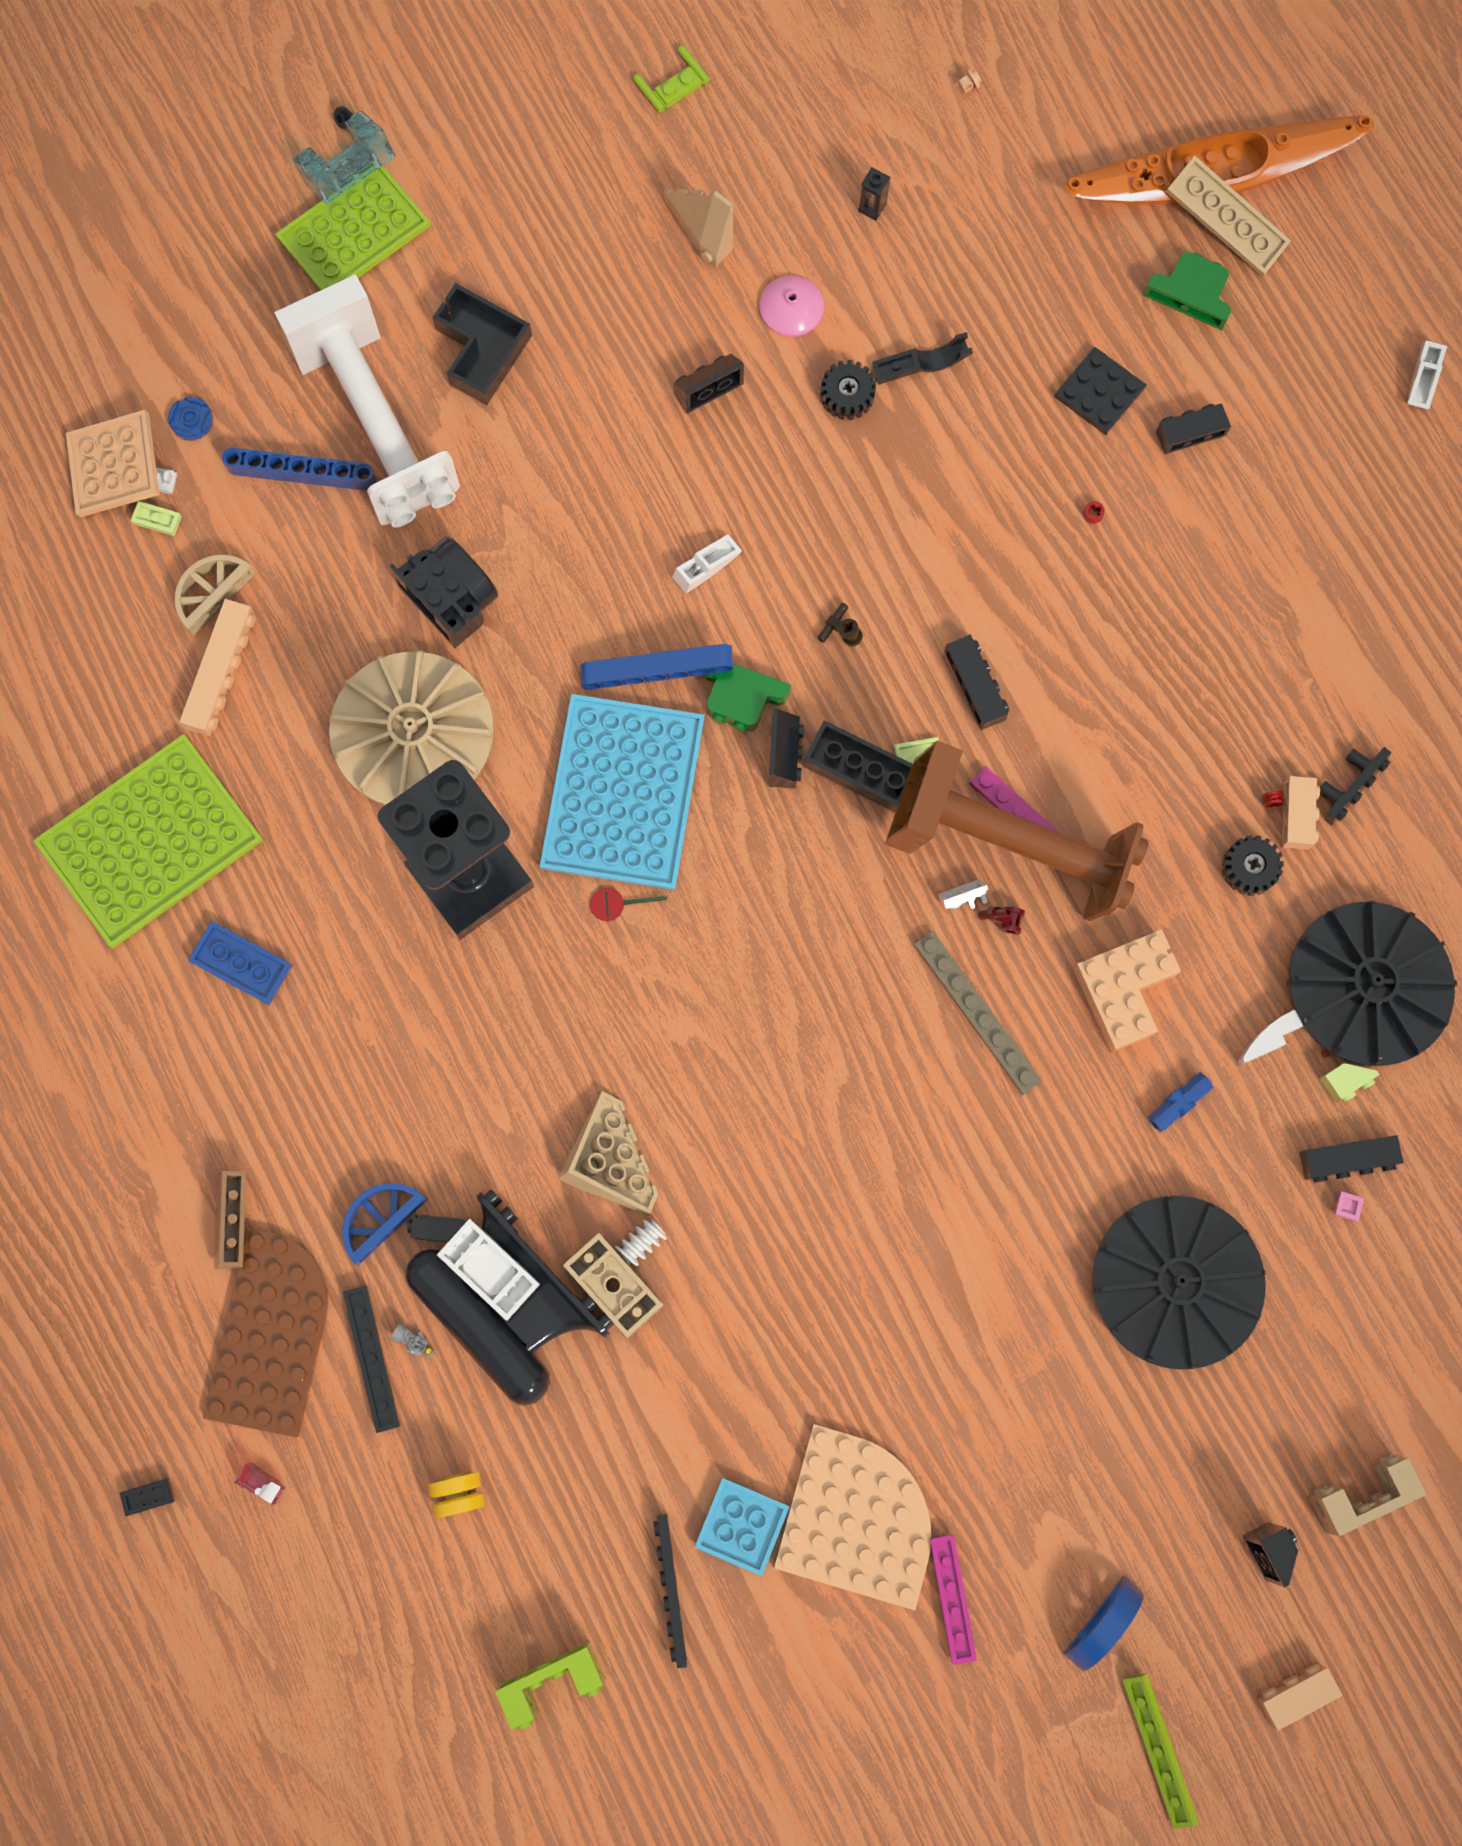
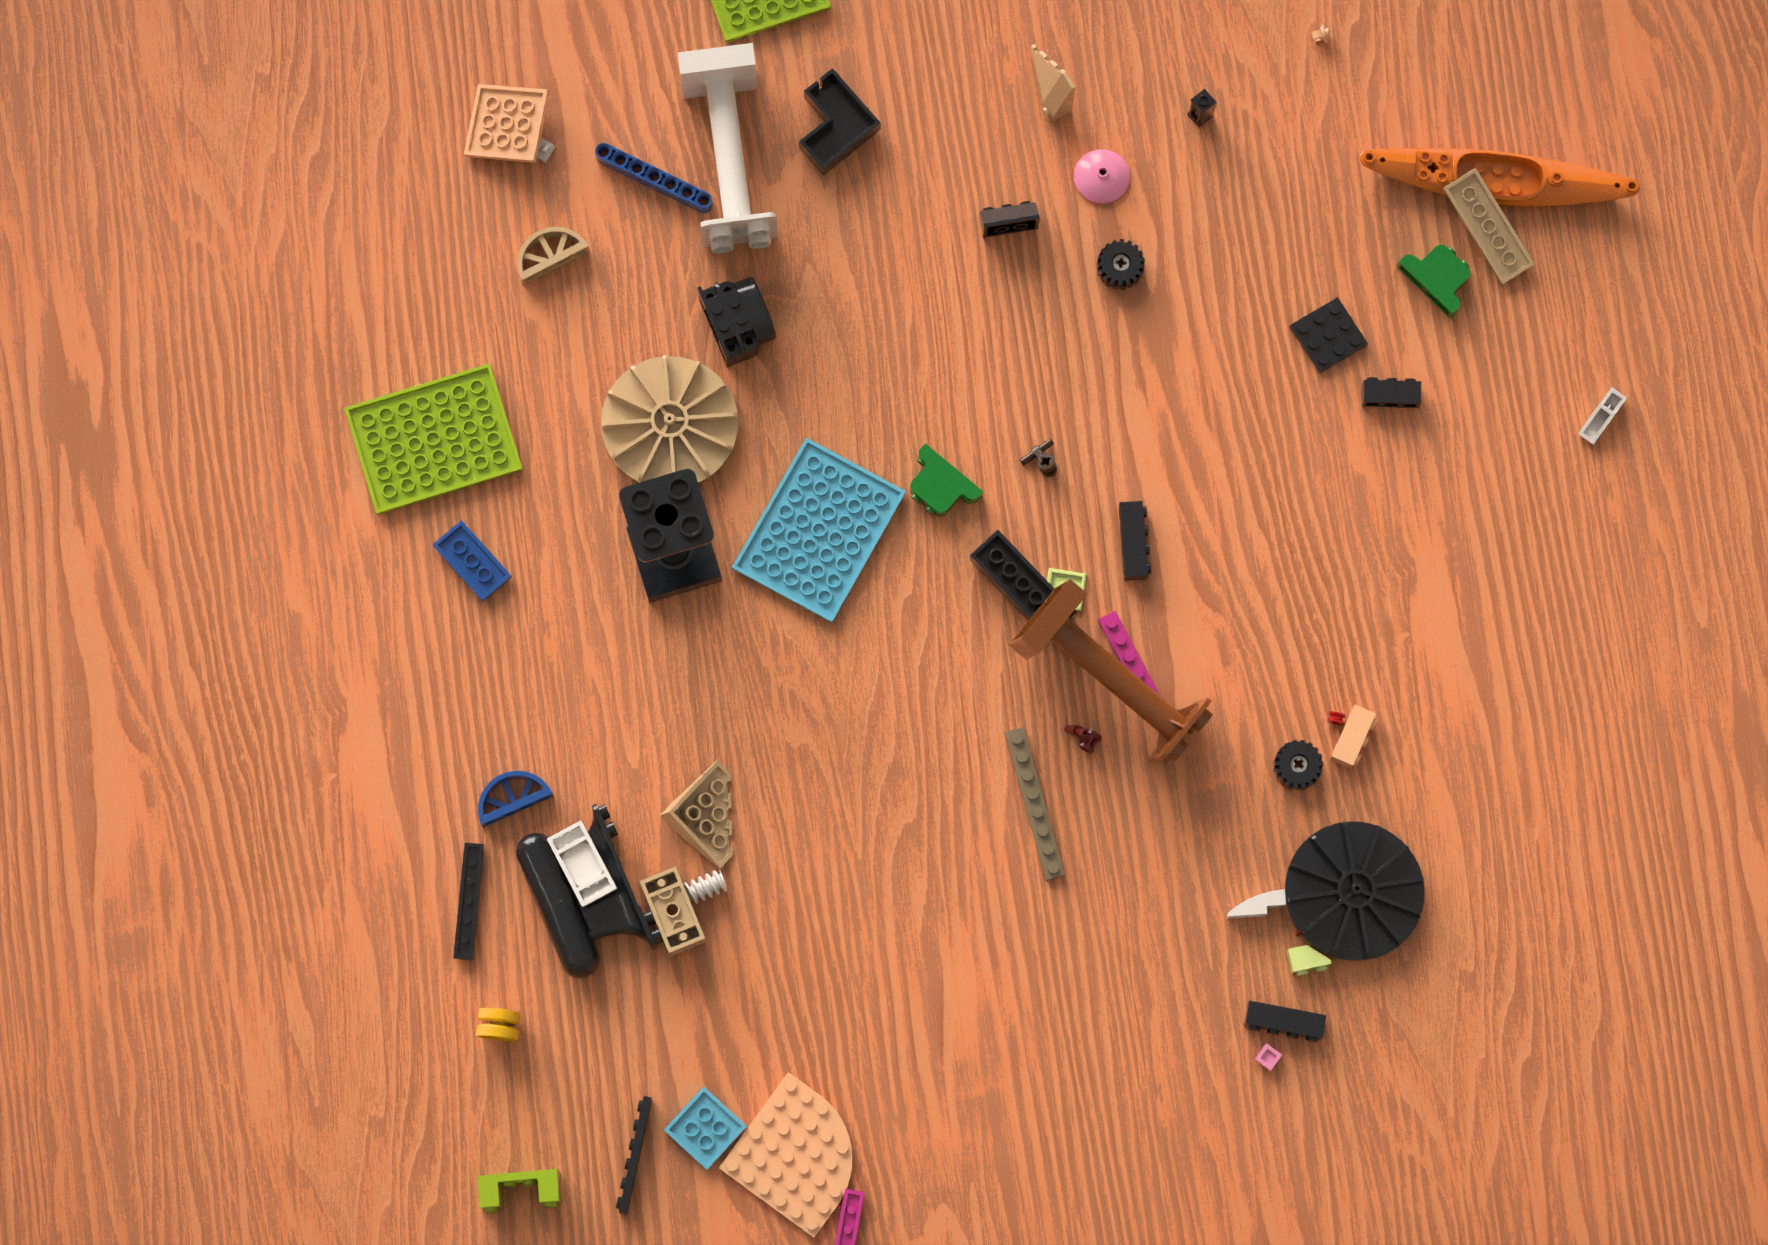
camera: 20 degrees right, 0 degrees up
(147, 1497) = (264, 944): black plate -> none
(156, 518) = (526, 179): yellowish green plate -> none
(190, 418) = (581, 105): blue tile -> none
(217, 668) = (534, 318): light nougat brick -> none
(230, 1220) = (397, 757): medium nougat brick -> none
(260, 1483) = (353, 964): clear pink leg -> none
(269, 1337) = (397, 857): dark orange plate -> none
(416, 1343) = (506, 902): light grey piece -> none
(434, 1227) = (550, 819): black window -> none
(608, 903) = (775, 616): red piece -> none
(656, 666) = (881, 439): blue beam -> none
(706, 563) = (952, 368): white slope -> none
(785, 749) = (959, 542): black slope -> none
(922, 361) = (1187, 259): black piece -> none
(965, 893) = (1053, 706): white plate -> none
(1095, 506) = (1279, 439): red bush -> none
(1114, 986) = (1152, 817): light nougat piece -> none
(1179, 1282) = (1110, 1065): black piece -> none
(1180, 1102) = (1167, 930): blue piece -> none
(1352, 795) = (1402, 736): black plate -> none

